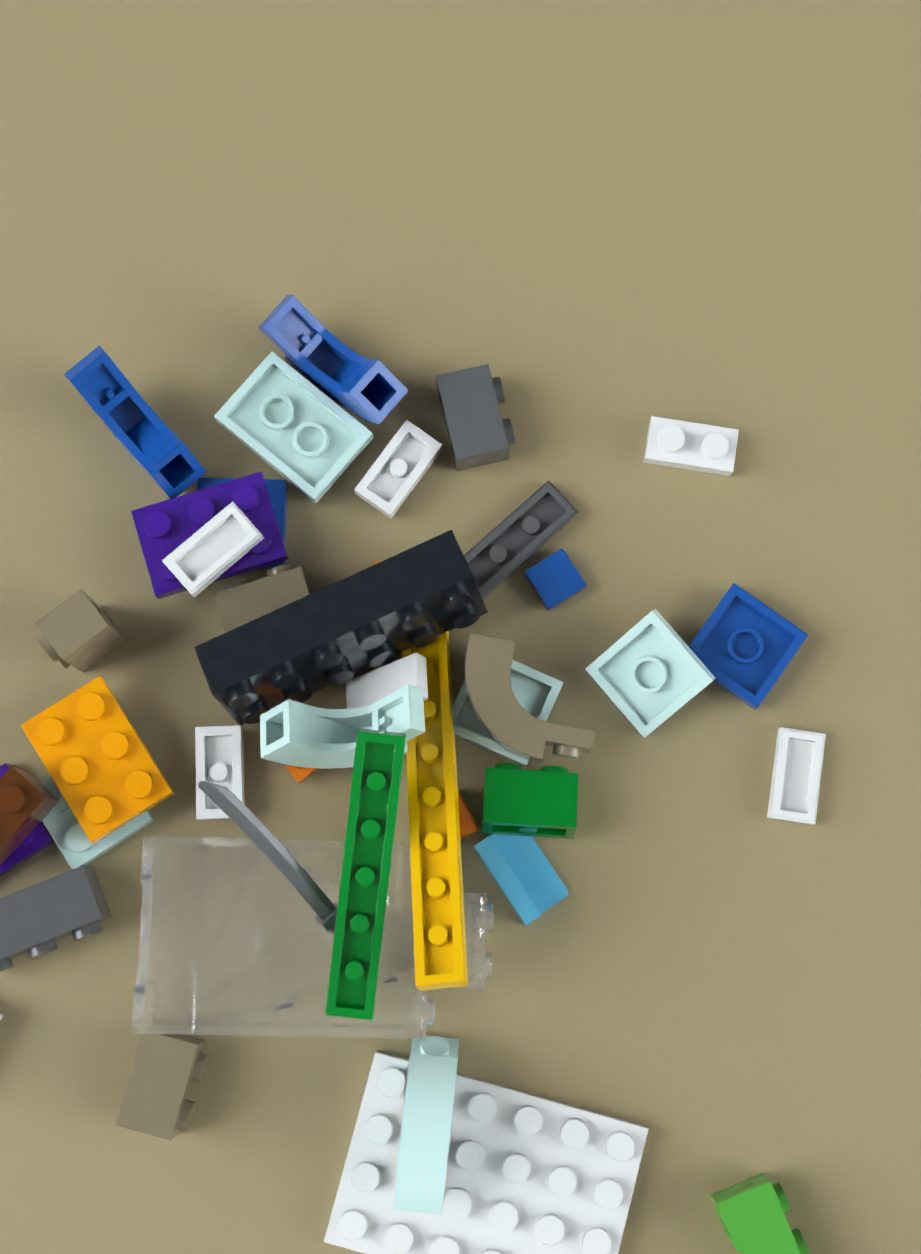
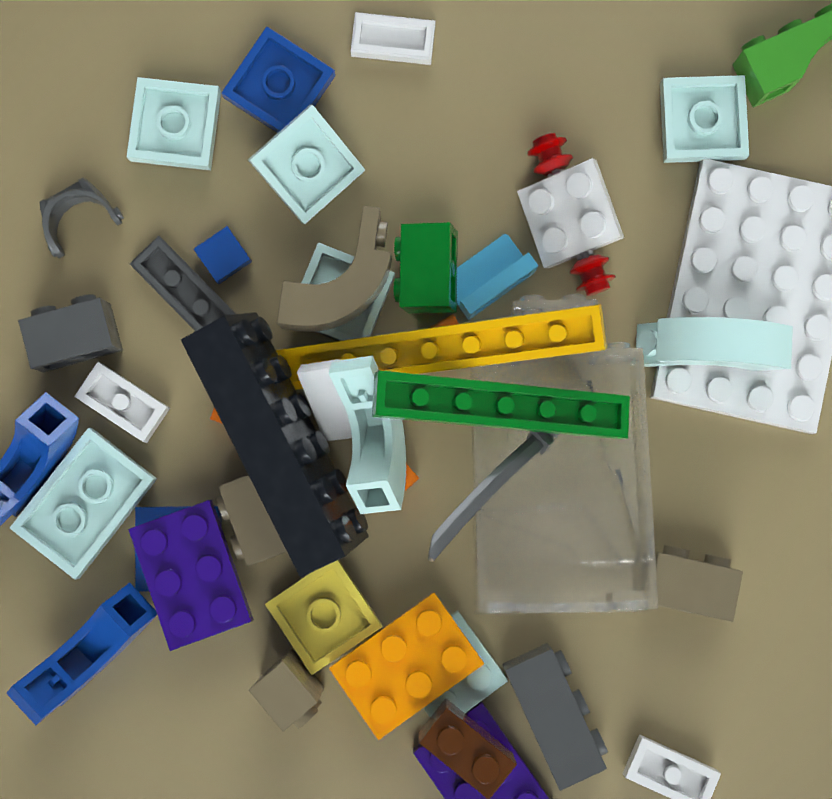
camera: 90 degrees left, 5 degrees up
(156, 674) = (323, 615): none -> light yellow plate
(213, 549) = (205, 568): white tile -> none
(221, 762) = (407, 553): white plate -> none
(586, 967) = (570, 213): none -> white plate
(613, 403) = (55, 206): none -> dark grey helmet
(691, 446) = (93, 136): white plate -> none
(694, 1132) = (704, 118): none -> light aqua plate
(701, 531) = (174, 123): none -> light aqua plate

